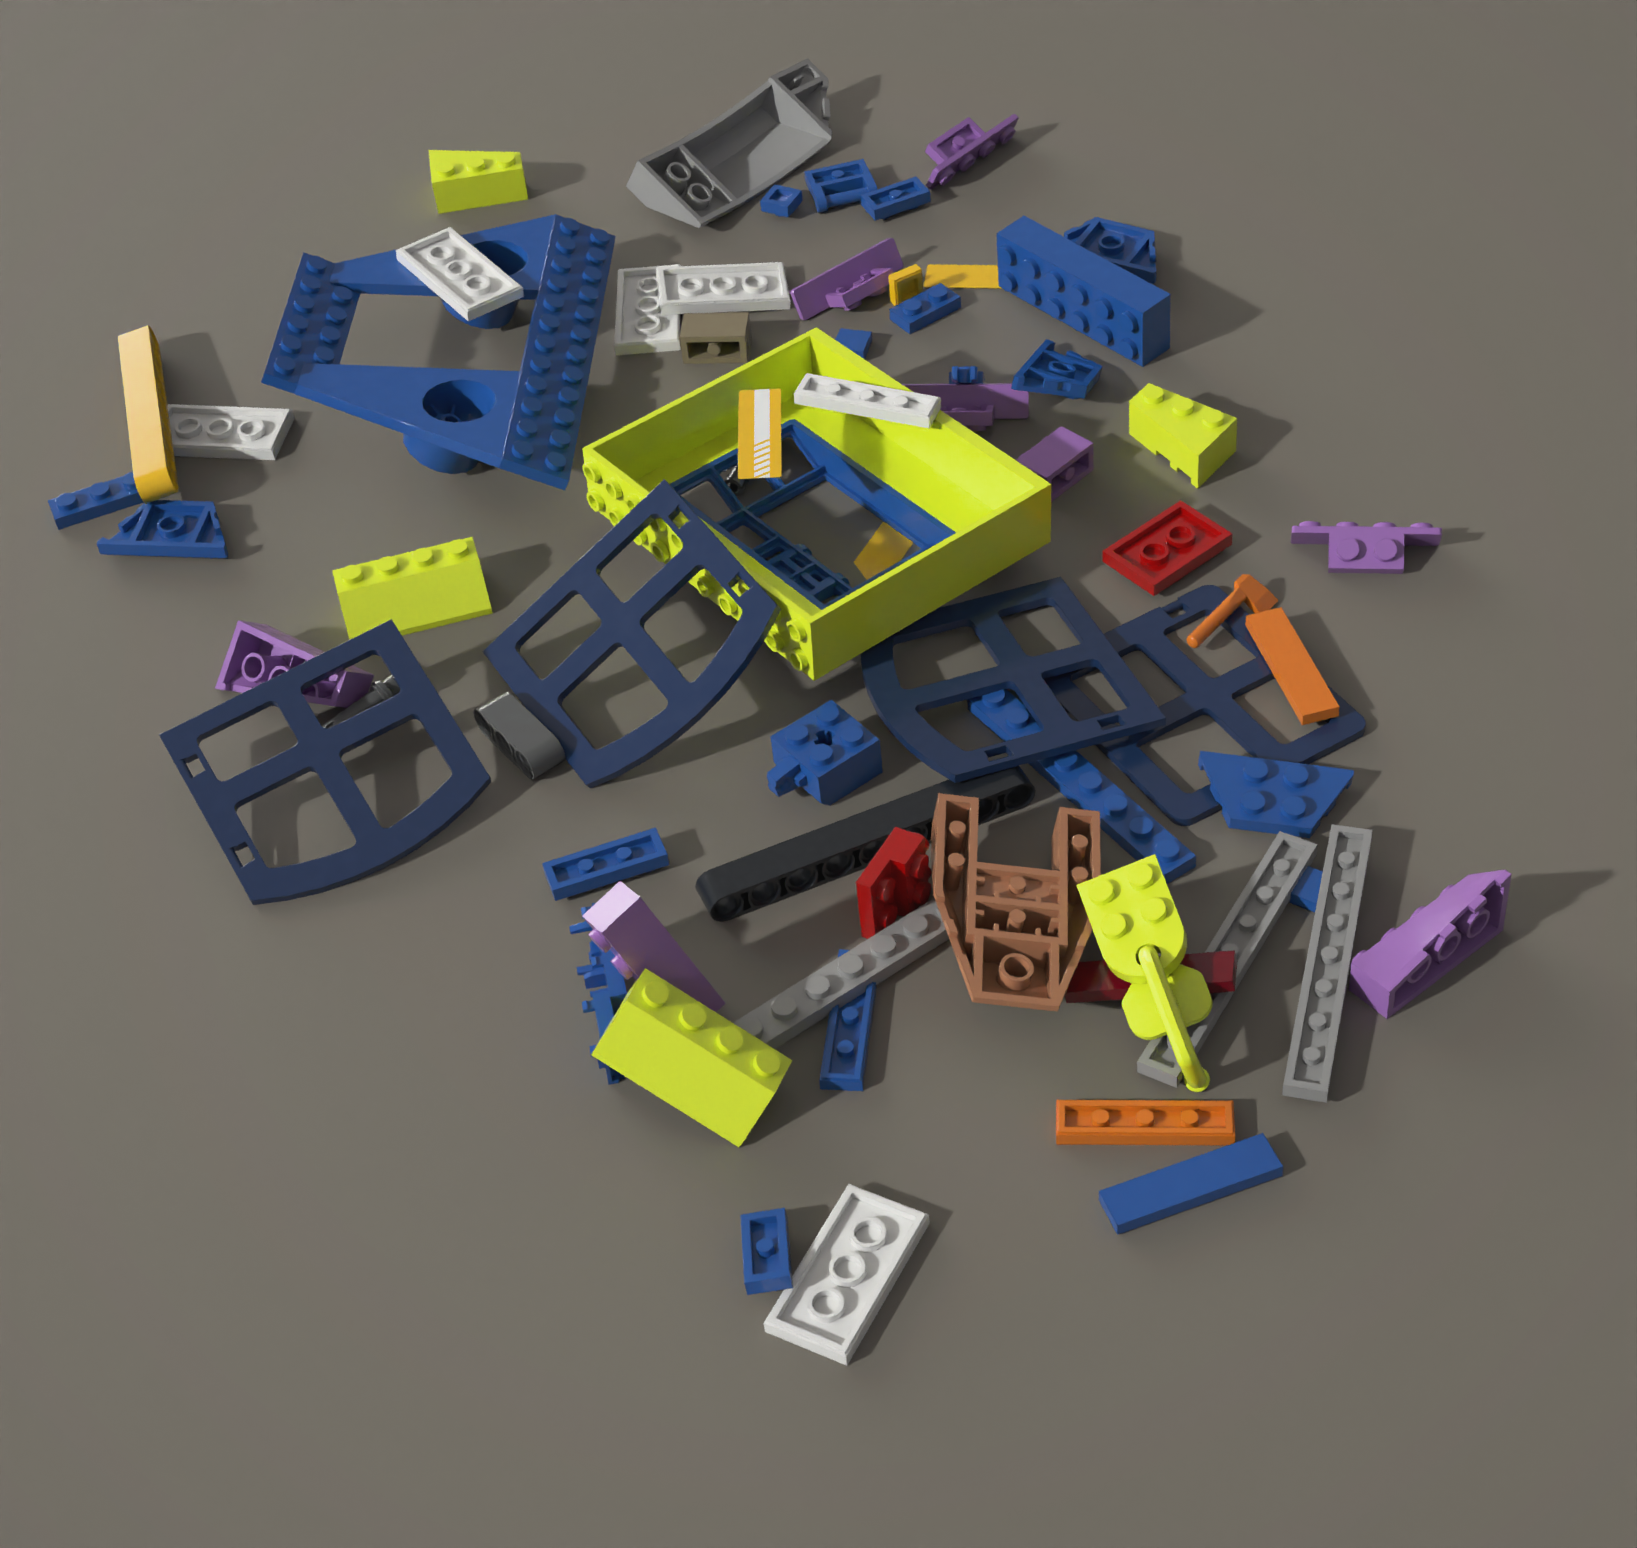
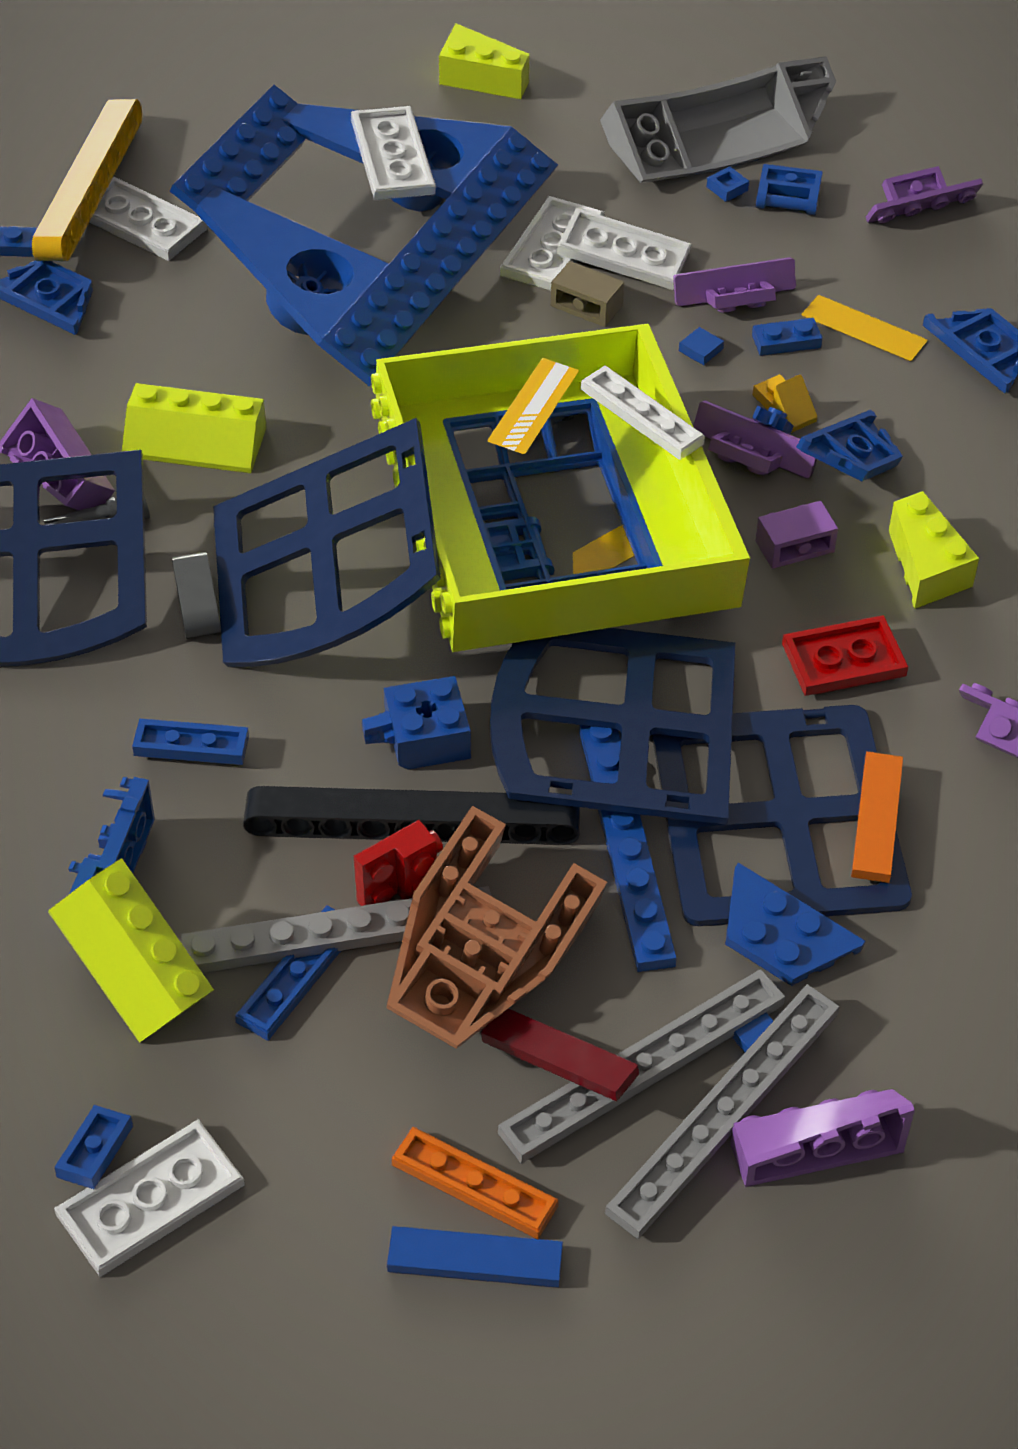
camera: 20 degrees right, 5 degrees up
(640, 941) = (147, 846): medium lavender wedge -> none
(895, 198) = (828, 220): blue plate -> none
(905, 284) = (780, 307): yellow tile -> none
(966, 352) = (789, 397): none -> yellow slope
(1084, 290) = (926, 378): blue brick -> none
(1132, 924) = (563, 996): neon yellow plate -> none
(1246, 590) = (887, 725): orange piece -> none

